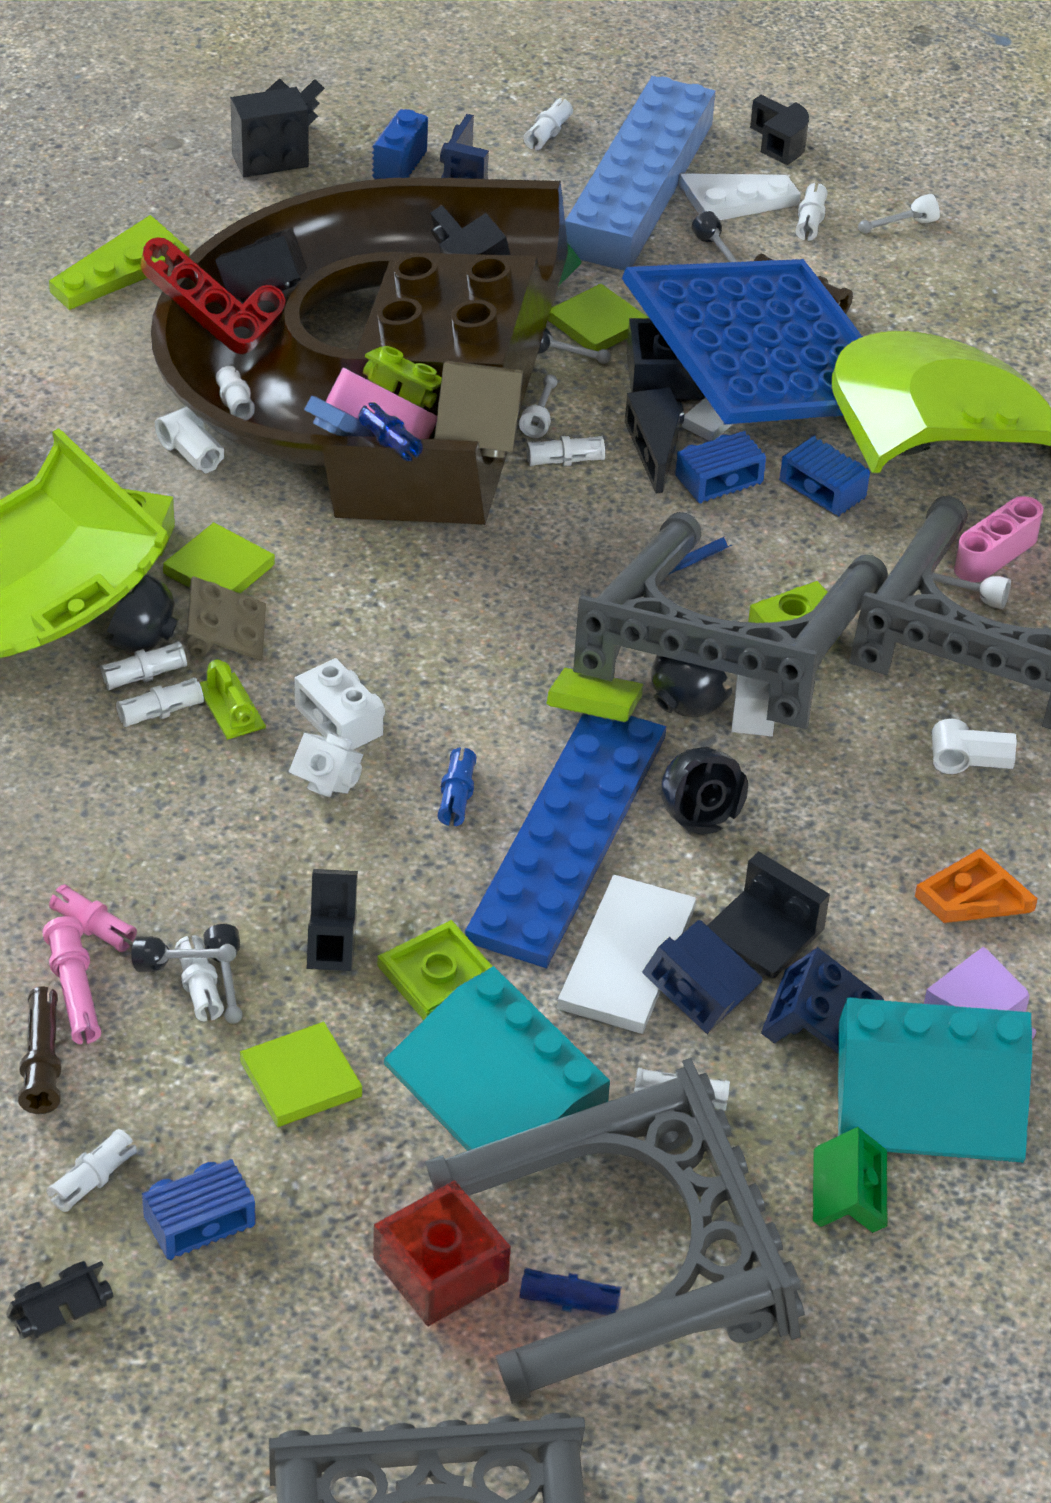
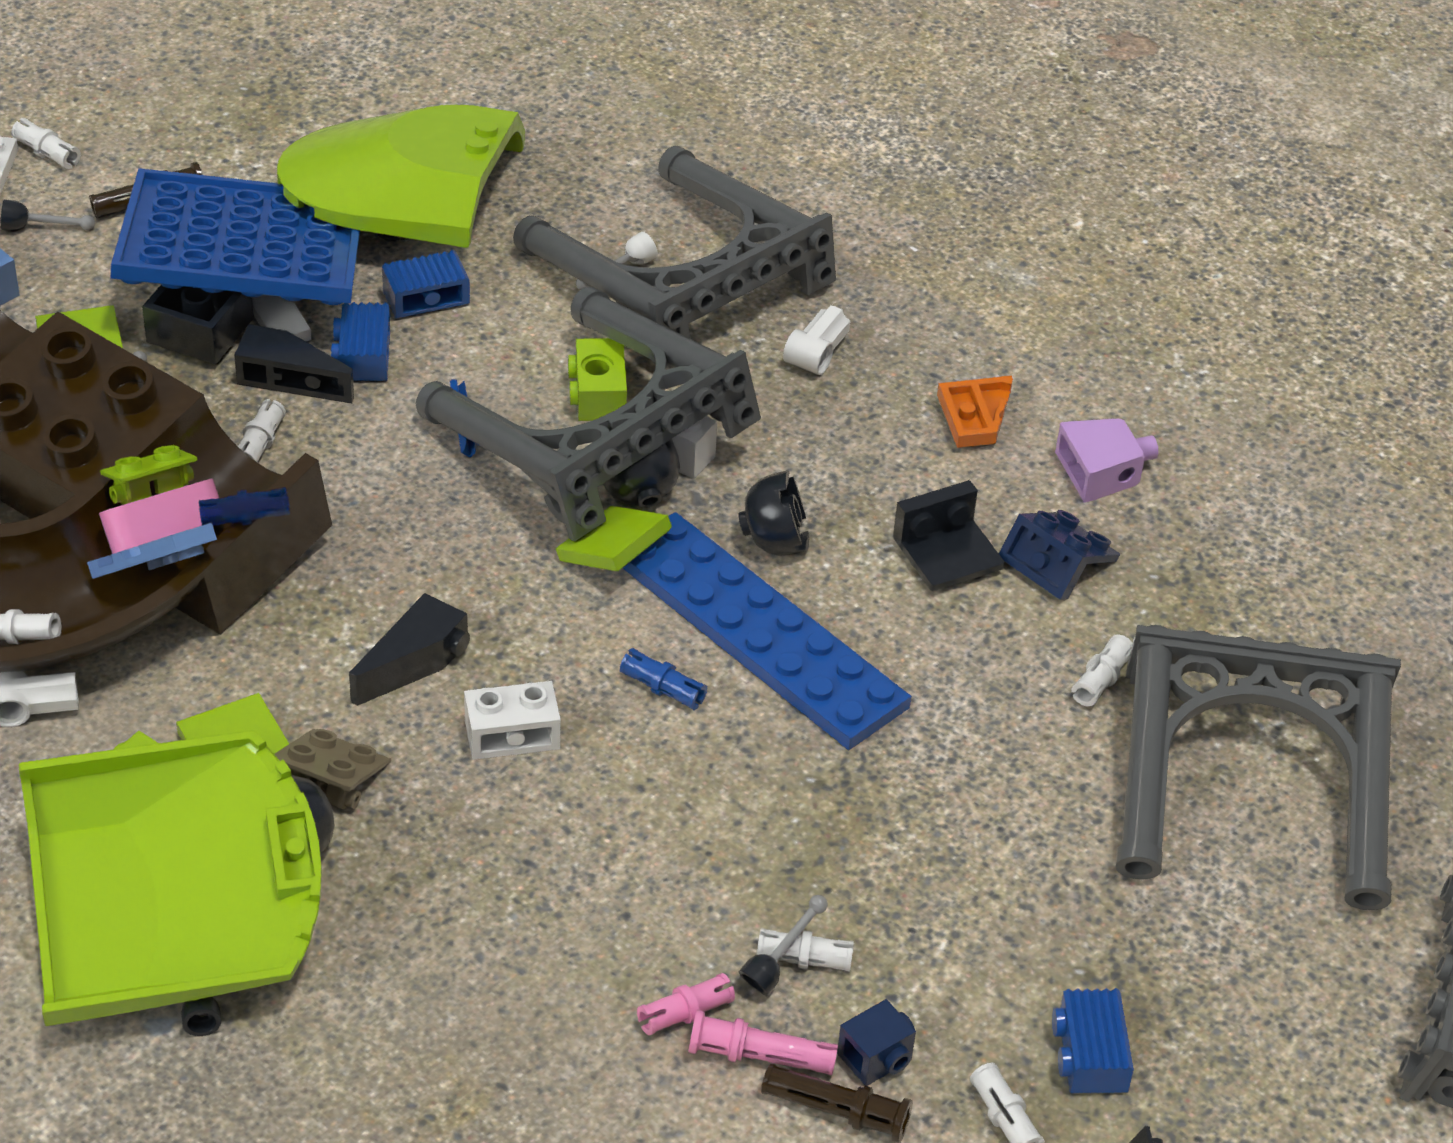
camera: 65 degrees left, 0 degrees up
(114, 1053) = (877, 1042): none -> dark blue brick
(143, 665) = (353, 848): white pin -> none
(159, 702) = (411, 855): white pin -> none
(213, 939) = (778, 917): hinge -> none
(229, 701) = (440, 802): lime hinge -> none
(300, 1074) = (958, 918): lime tile -> none
(327, 763) = (593, 752): white brick -> none
(332, 920) = (805, 829): black brick -> none
(379, 620) = (411, 650): none -> black slope
(432, 966) = (881, 778): lime tile -> none
(441, 1253) = (1229, 885): clear red brick -> none
(479, 406) = (243, 435): dark tan brick -> none
(494, 1064) = (1032, 777): teal slope -> none
(570, 1292) = (1287, 825): clear blue pin -> none
(623, 937) = (928, 646): white tile -> none
(701, 975) = (995, 607): dark blue bracket -> none
(850, 1180) = (1244, 611): green panel -> none
(923, 210) = (108, 76): hinge -> none
(936, 1078) = (1182, 512): teal slope -> none
(998, 539) = (580, 212): bright pink beam -> none

